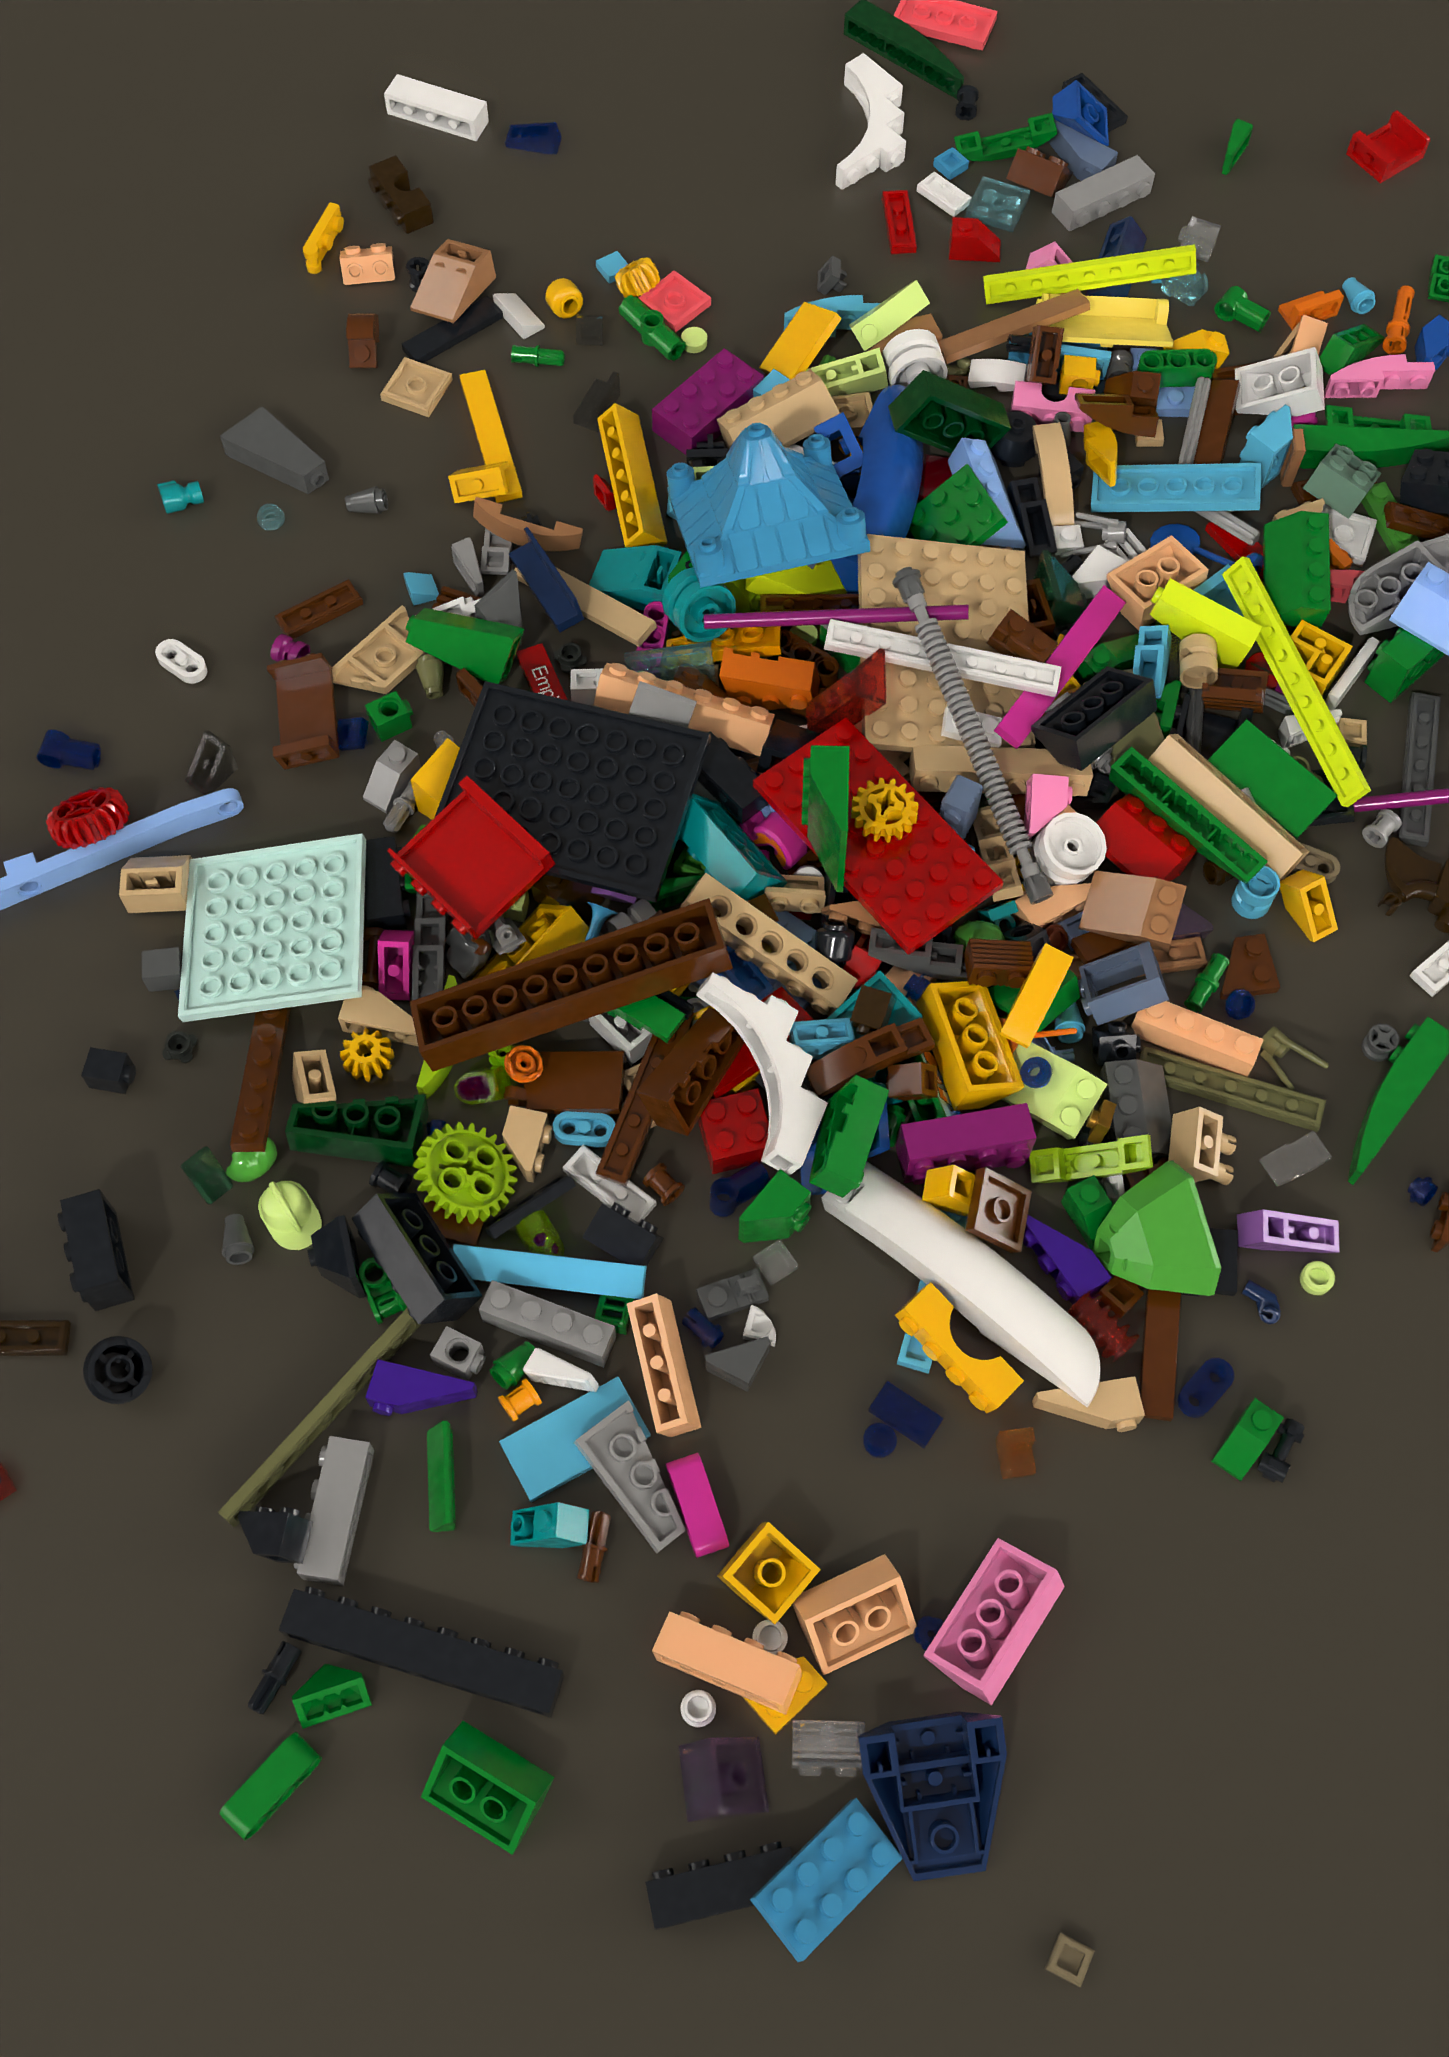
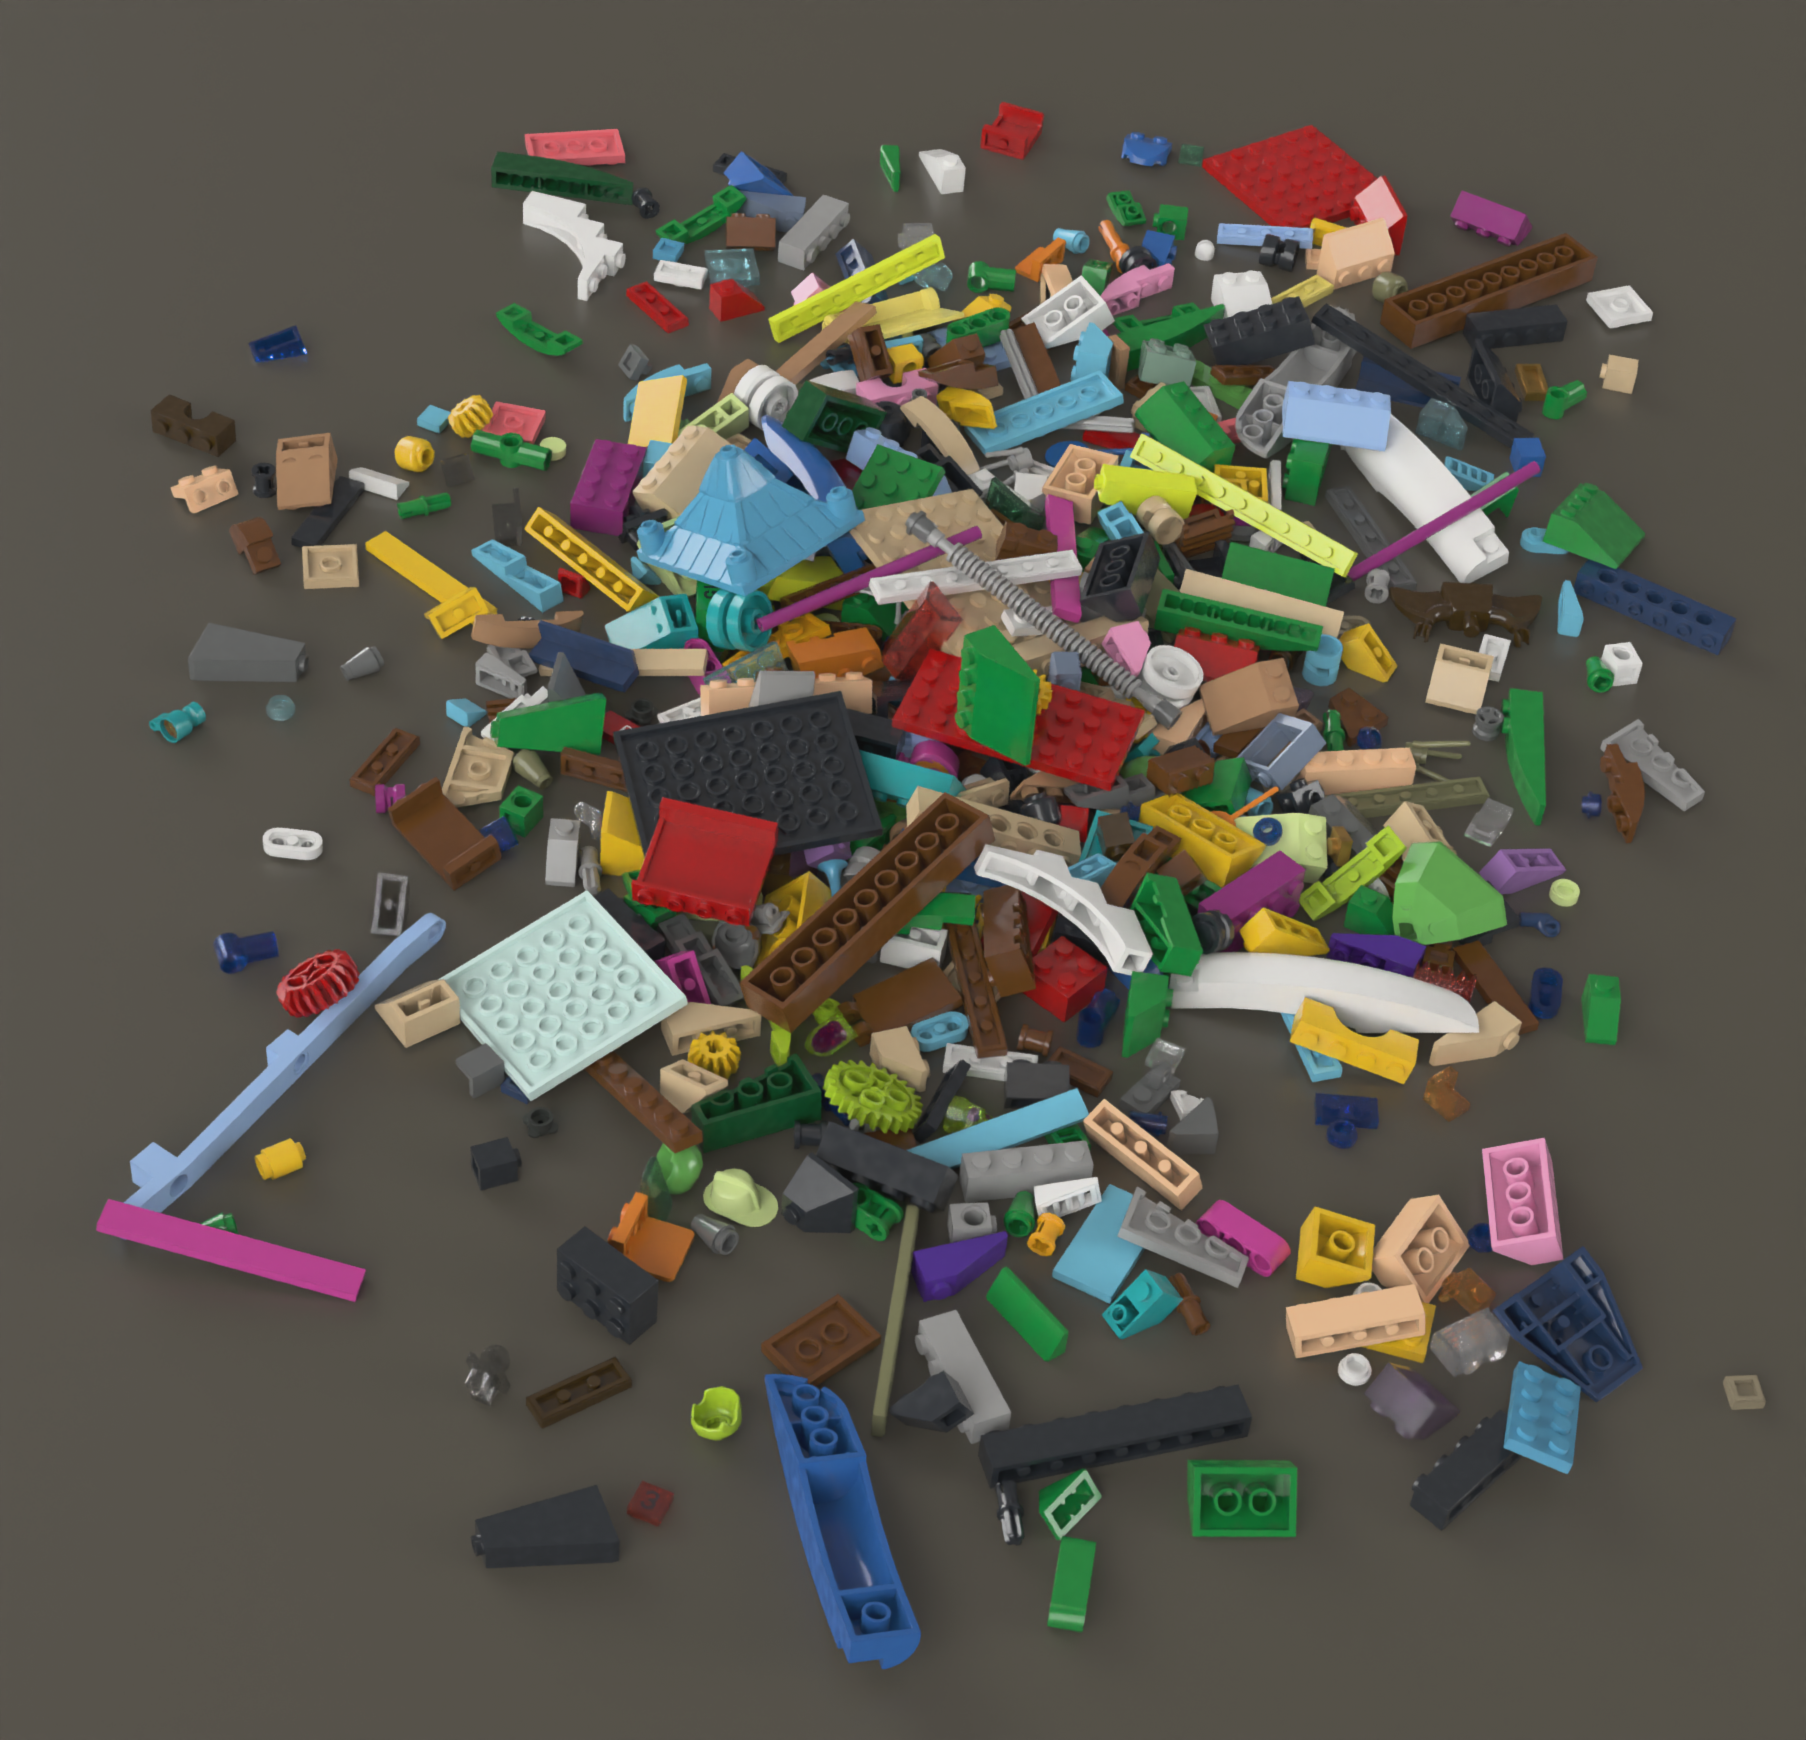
camera: 35 degrees left, 20 degrees down
(100, 1431) = (717, 1414): none -> lime hair
(109, 1608) = (840, 1523): none -> blue slope
(117, 1370) = (698, 1361): black cone -> none
(174, 1219) = (650, 1242): none -> orange bracket
(242, 1404) = (821, 1342): none -> reddish brown plate
(322, 237) = (148, 483): yellow plate -> none
(436, 107) = (169, 349): white brick -> none
(525, 1055) = (858, 1000): orange plate -> none
(569, 463) = (513, 569): none -> medium azure slope
(683, 1236) = (1082, 1072): none -> reddish brown tile
(765, 208) = (520, 324): none -> green slope
(869, 1687) = (1467, 1290): none -> clear orange bracket
(889, 315) = (714, 372): yellowish green slope -> none
(891, 1161) = (1213, 930): none -> black wheel
(998, 1210) = (1313, 931): reddish brown plate -> none
(1036, 995) = (1230, 774): yellow slope -> none
(1274, 1465) = (1631, 1019): black bar -> none
(1286, 167) = (945, 170): none -> white slope
(1383, 979) = (1459, 679): none -> tan slope
(1404, 343) = (1135, 258): none -> black wheel

